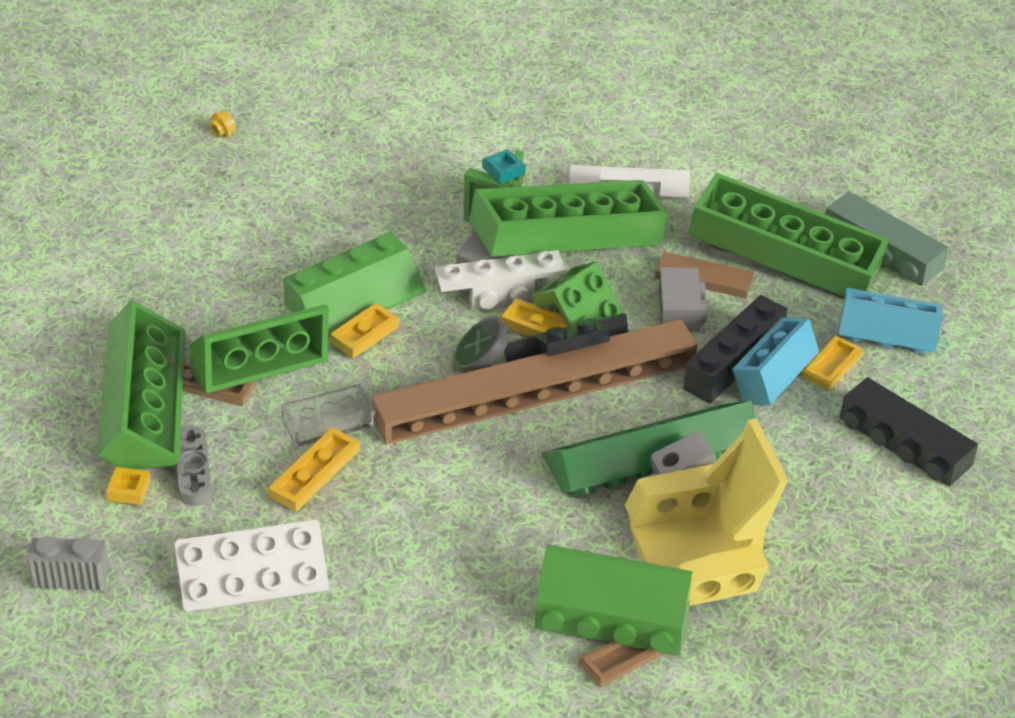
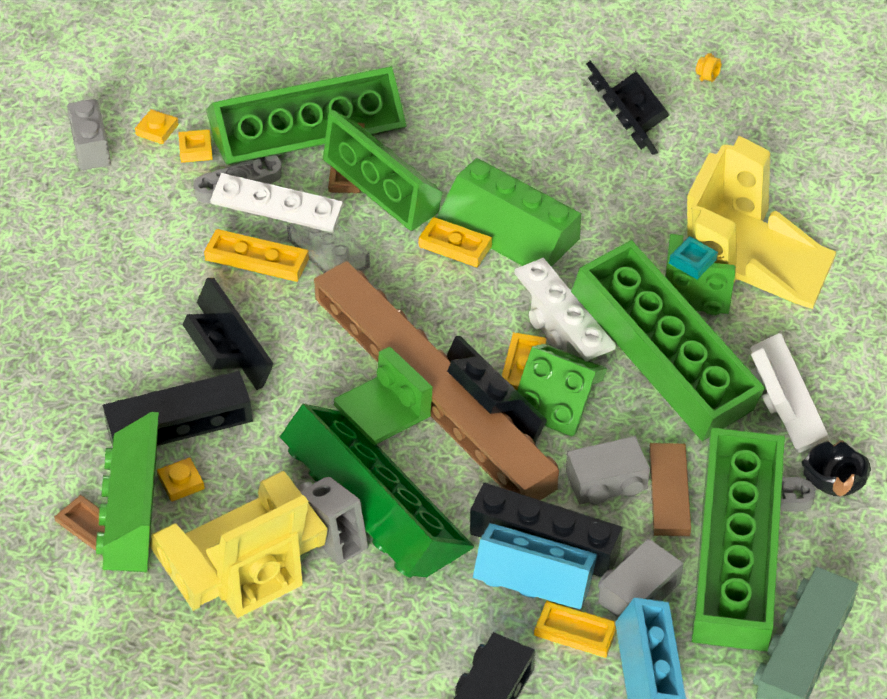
camera: 75 degrees right, 5 degrees up
(74, 514) = (156, 126): none -> yellow plate
(246, 176) = (636, 103): none -> black bracket
(251, 565) = (122, 243): white bracket -> none
(265, 429) = (277, 202): none -> white bracket
(416, 508) = (225, 336): none -> black bracket
(445, 151) = (728, 216): none -> light yellow piece
(481, 344) = (457, 324): tile -> none
(507, 563) = (186, 409): none -> black brick
(547, 410) = (388, 402): none -> bright green bracket
(727, 166) = (836, 468): none -> black hair
(807, 302) = (644, 574): none -> light grey brick

